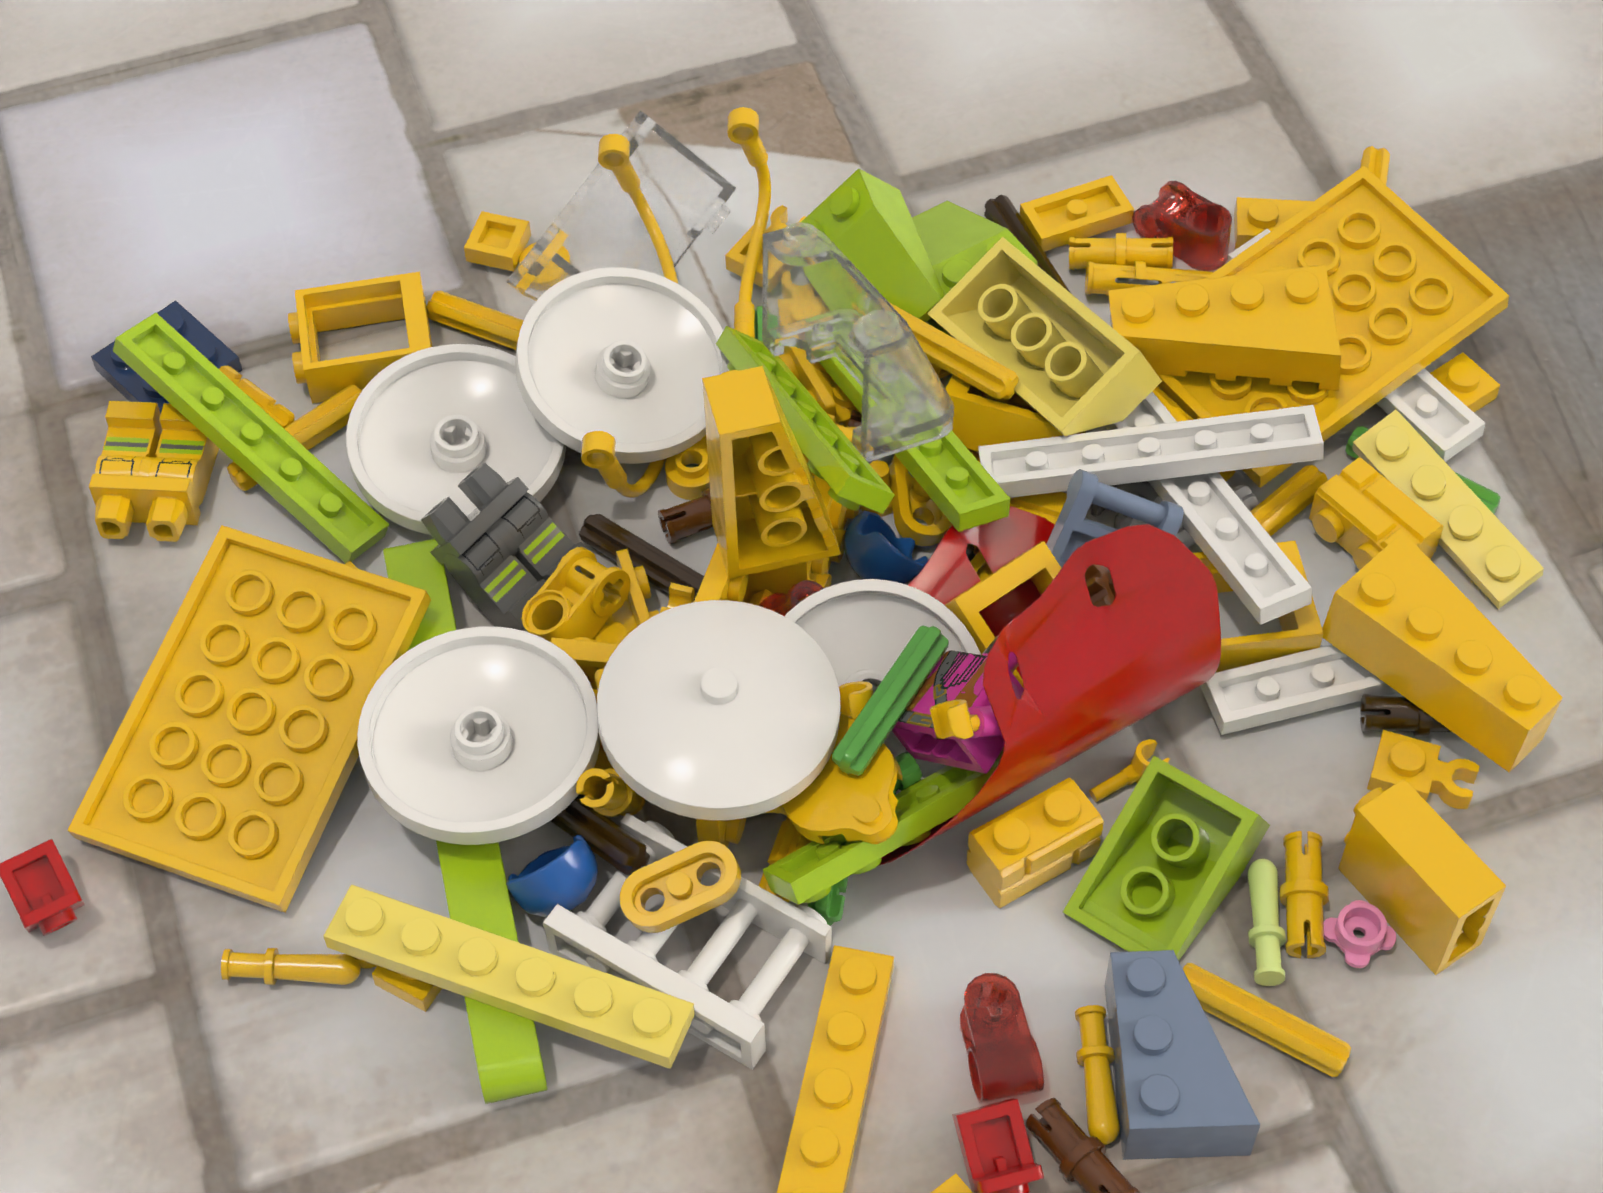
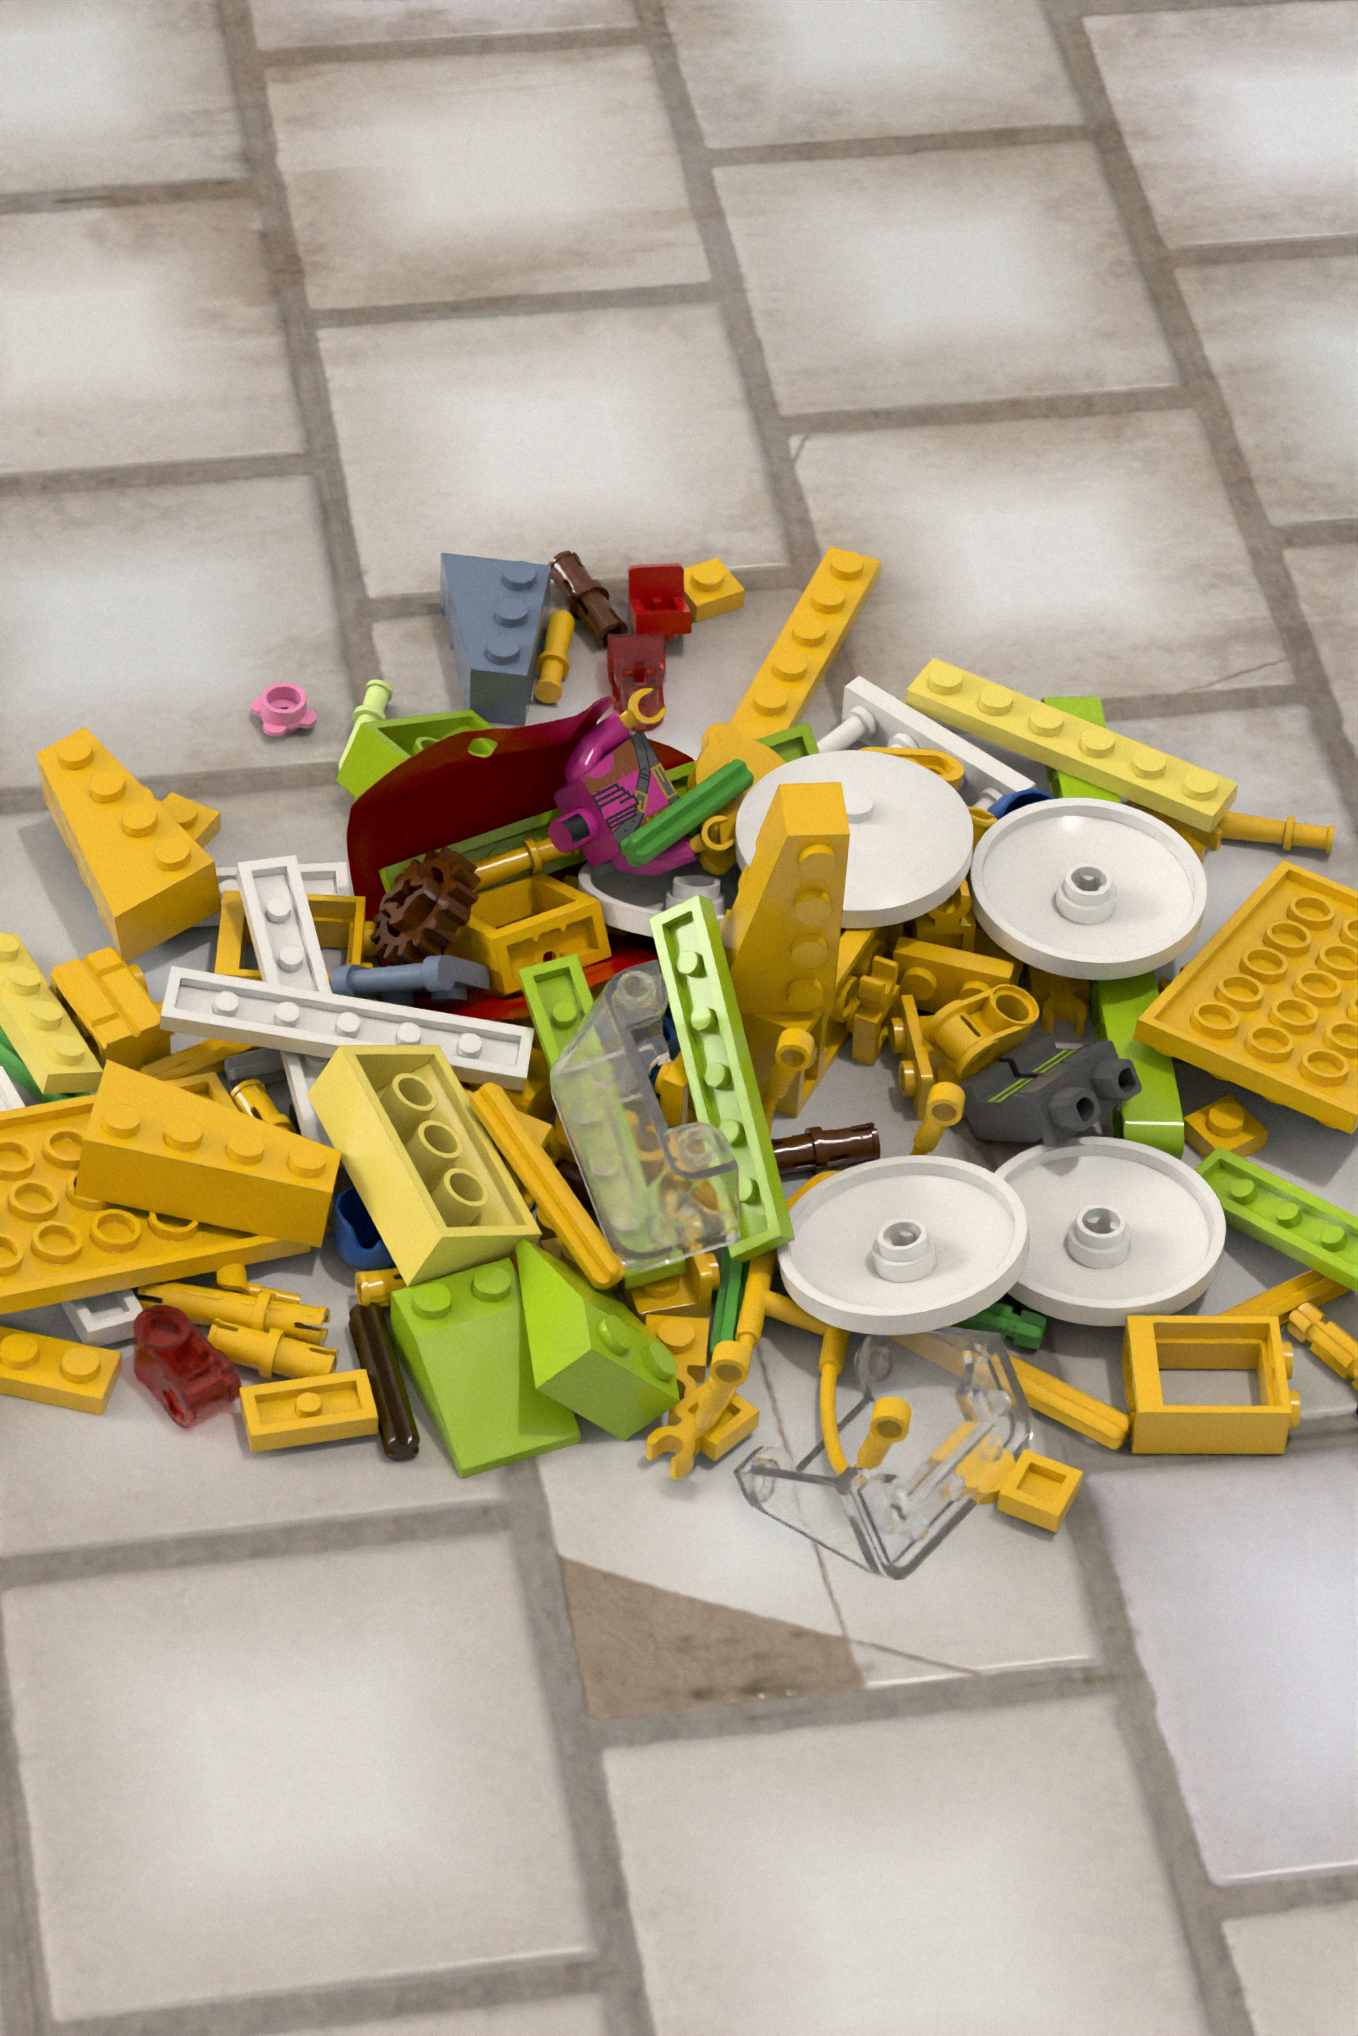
camera: 175 degrees left, 10 degrees down
(659, 567) = (885, 1103): dark brown axle -> none
(1268, 1022) = (396, 667): yellow axle -> none
(1304, 894) = (322, 738): yellow pin -> none
(1420, 875) = (223, 697): yellow brick -> none

